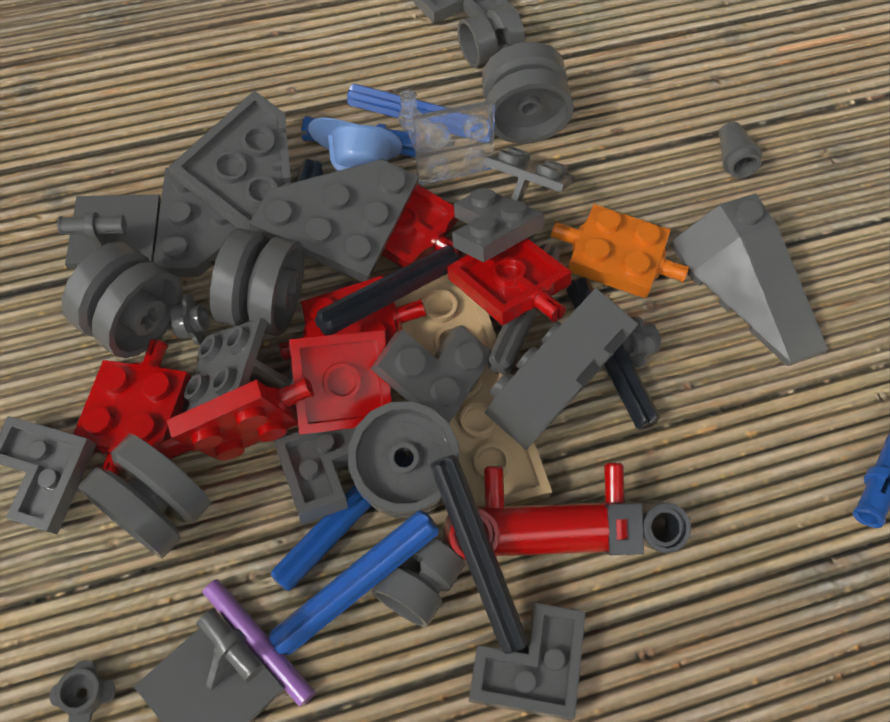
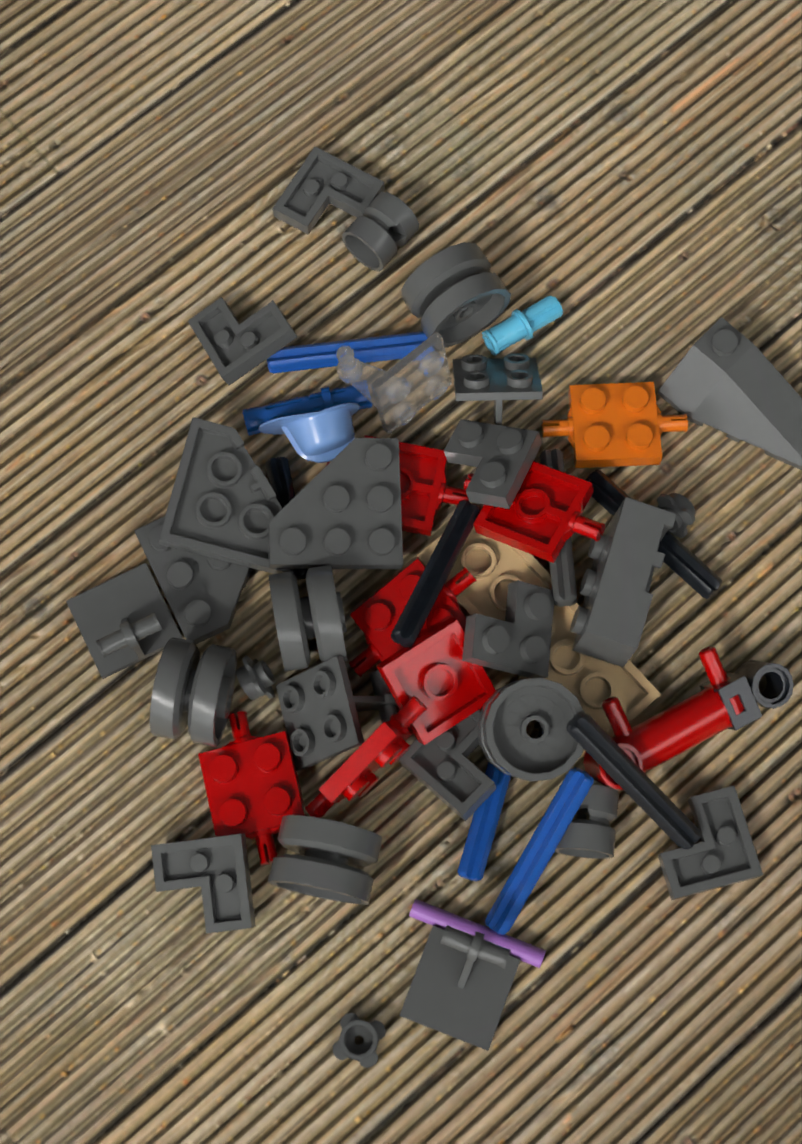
camera: 20 degrees left, 10 degrees up
(329, 67) = (242, 346): none -> dark grey plate
(575, 145) = (522, 324): none -> medium azure axle
(738, 151) = (683, 263): dark grey cone -> none

